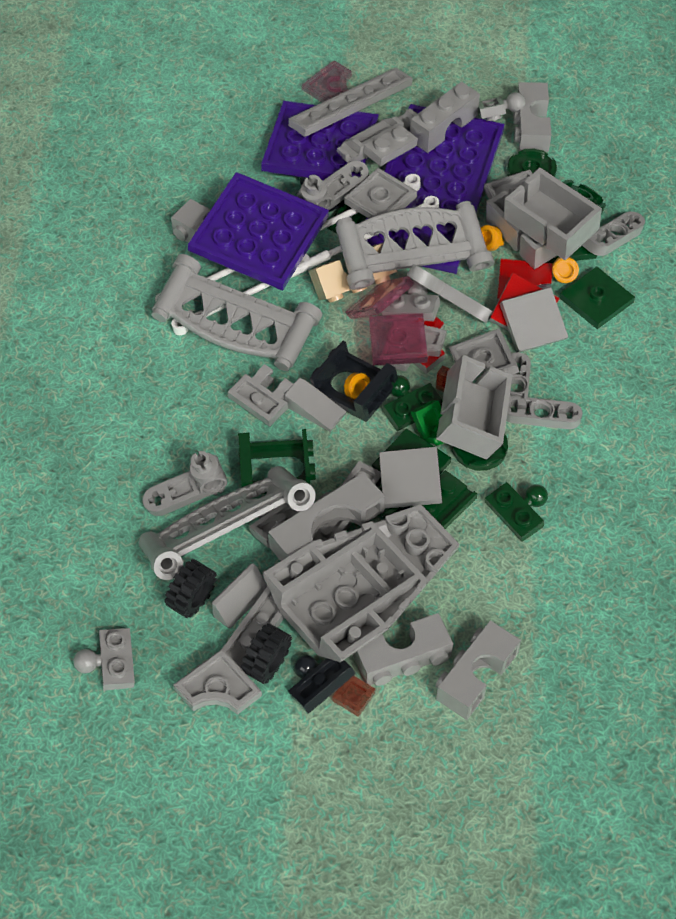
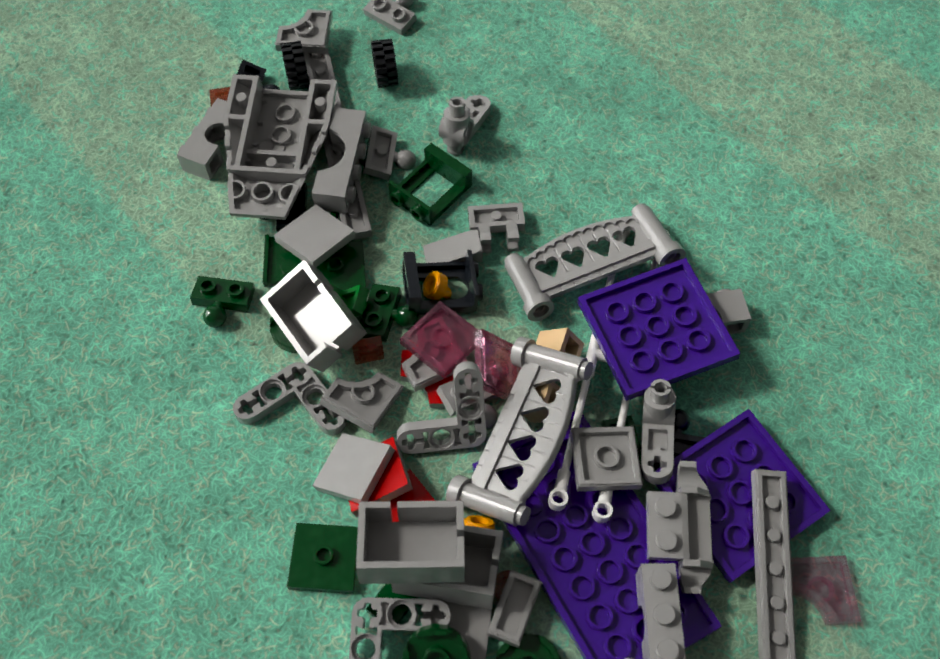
camera: 135 degrees right, 5 degrees up
(239, 596) = (355, 89): light grey slope -> none
(281, 488) = (383, 140): light grey piece -> none
(490, 649) = (153, 182): light grey arch -> none

